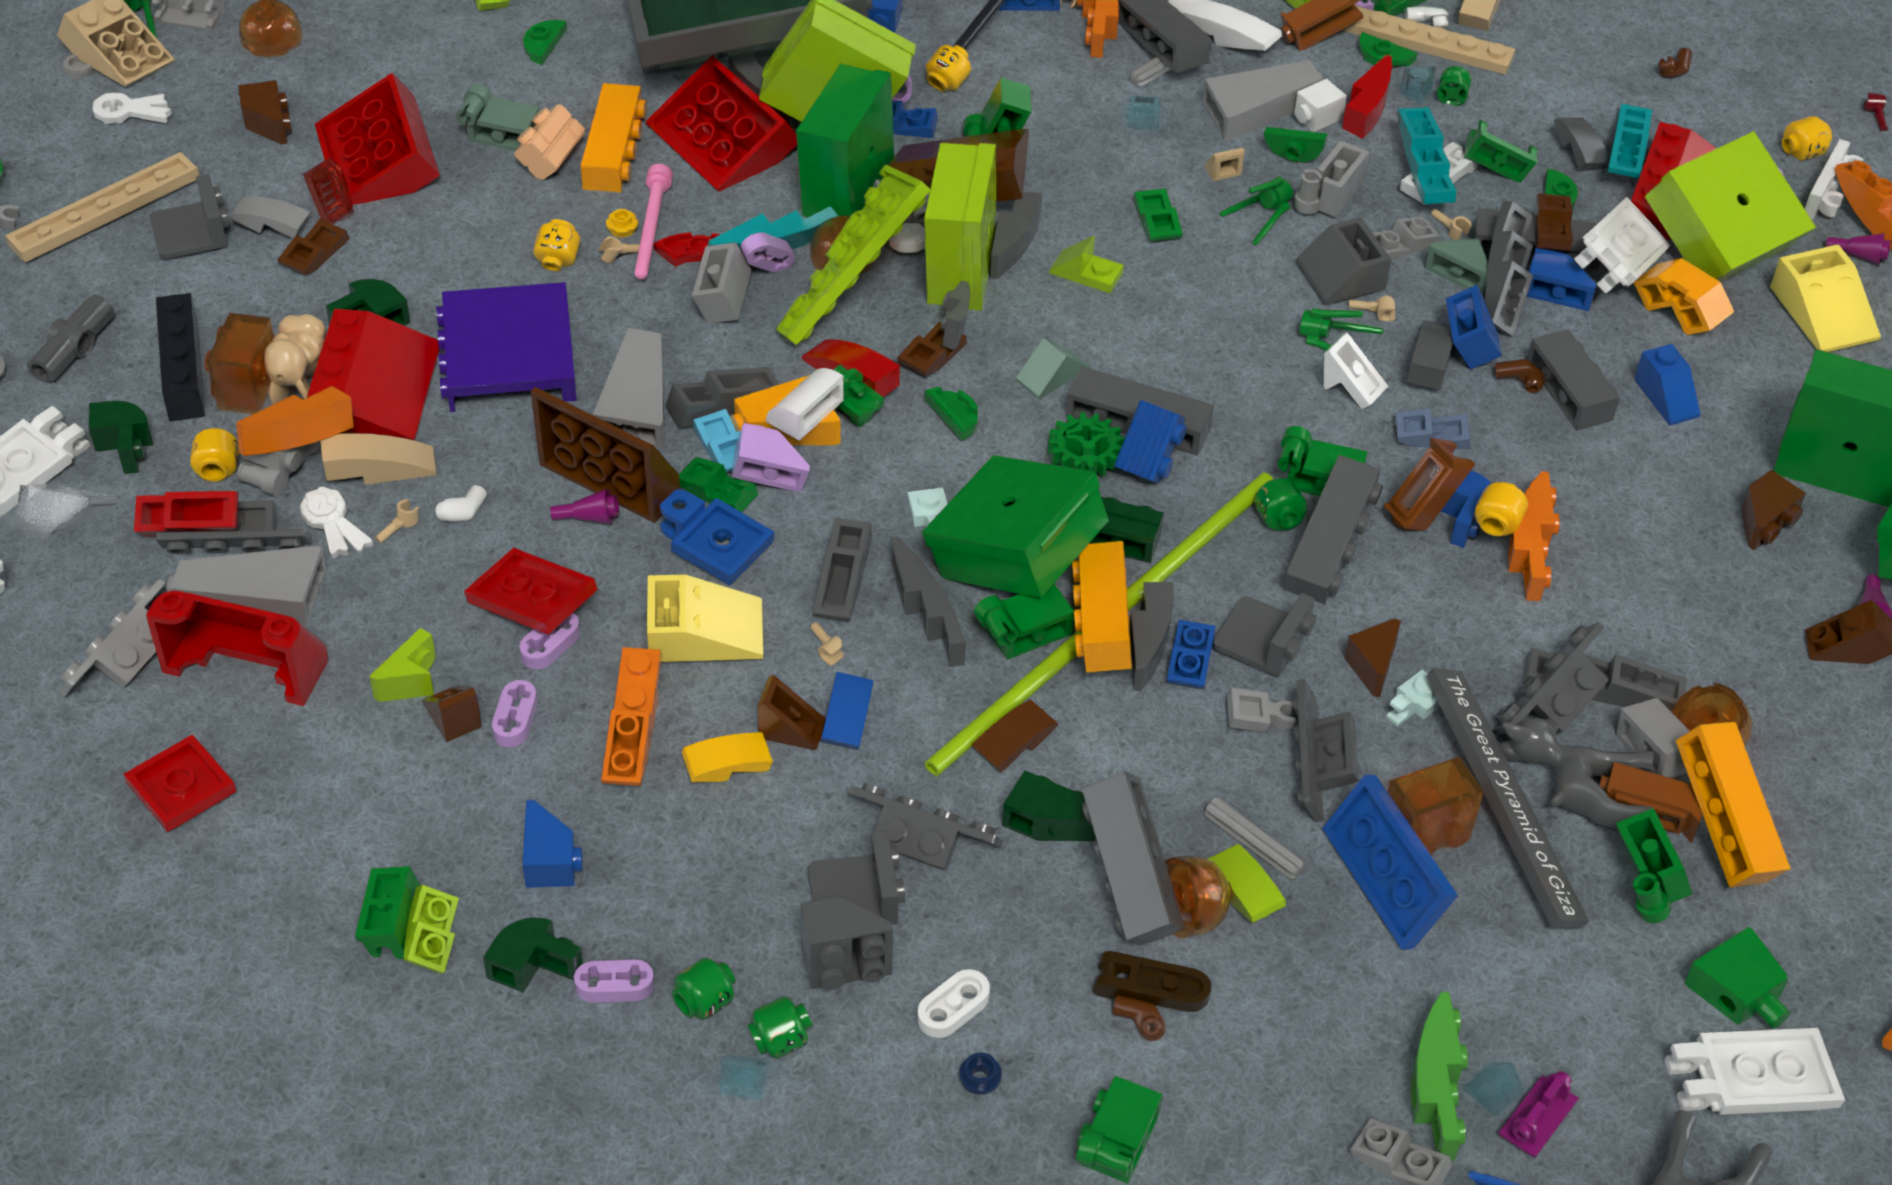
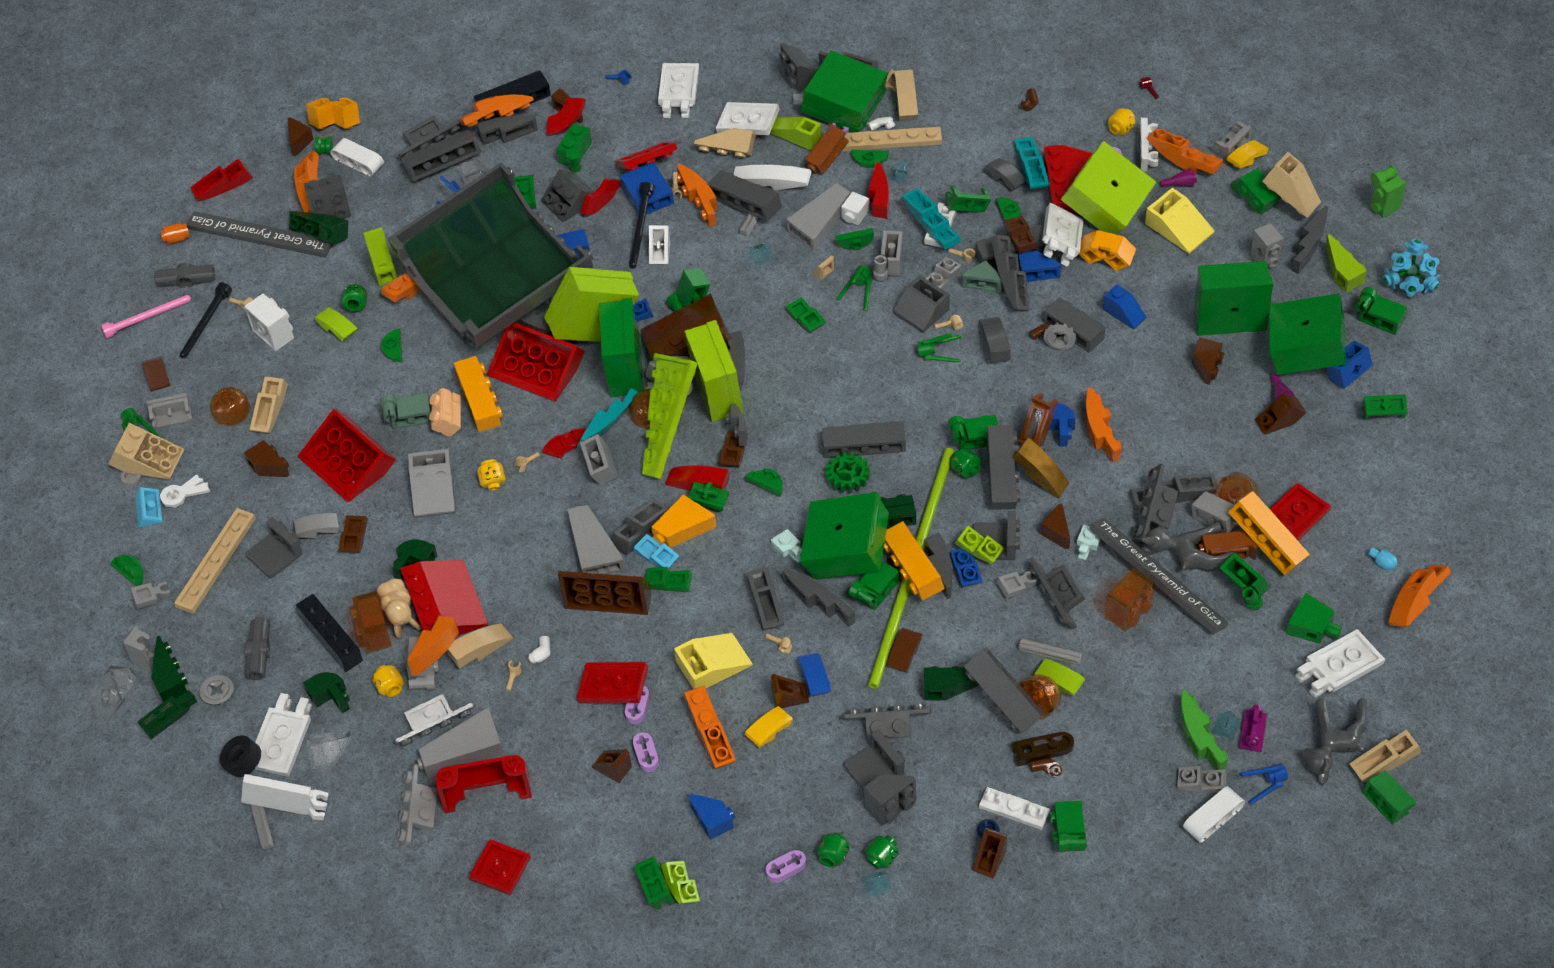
camera: 20 degrees left, 5 degrees up
(72, 109) = (148, 506): none -> medium azure slope
(186, 512) = (404, 721): red slope -> none
(317, 178) = (327, 489): clear red slope -> none
(321, 45) = (268, 404): none -> tan slope
(326, 511) = (469, 686): white piece -> none
(406, 670) = (576, 756): lime slope -> none
(466, 221) = (431, 482): none -> light grey slope
(505, 341) = (503, 545): dark purple panel -> none
(526, 947) = (735, 868): dark green brick -> none
(594, 508) = (612, 621): magenta cone -> none
(622, 223) = (516, 448): yellow plate -> none
(658, 180) = (520, 410): bright pink piece -> none
(699, 528) = (678, 603): blue plate -> none
(767, 252) = (612, 430): lavender beam -> none
(768, 459) = (689, 553): lavender slope -> none
(808, 403) = (694, 513): white brick -> none
(948, 68) = (639, 268): yellow head -> none
(951, 1005) = (955, 803): white plate -> none
(959, 1111) = (990, 853): none -> reddish brown slope
(999, 47) = (659, 244): none -> white slope
(1046, 1058) = (1014, 808): none -> white plate
(1049, 368) = (802, 434): sand green slope -> none
(1083, 267) = (783, 364): lime slope -> none
(1151, 442) = (883, 457): blue brick -> none
(1227, 630) = (978, 546): none -> lime slope
(1349, 366) = (963, 369): white slope -> none
(1389, 862) = (1123, 635): blue plate -> none
(1396, 554) = (1041, 468): none -> pearl gold slope
(1417, 427) = (1015, 386): sand blue slope -> none
(1457, 92) = (920, 165): green wheel -> none
(1473, 327) = (1009, 316): blue slope -> none
(1501, 509) = (1080, 419): yellow head -> none
(1536, 397) = (1059, 342): none -> light grey gear
(1810, 797) = (1300, 510): none -> red plate

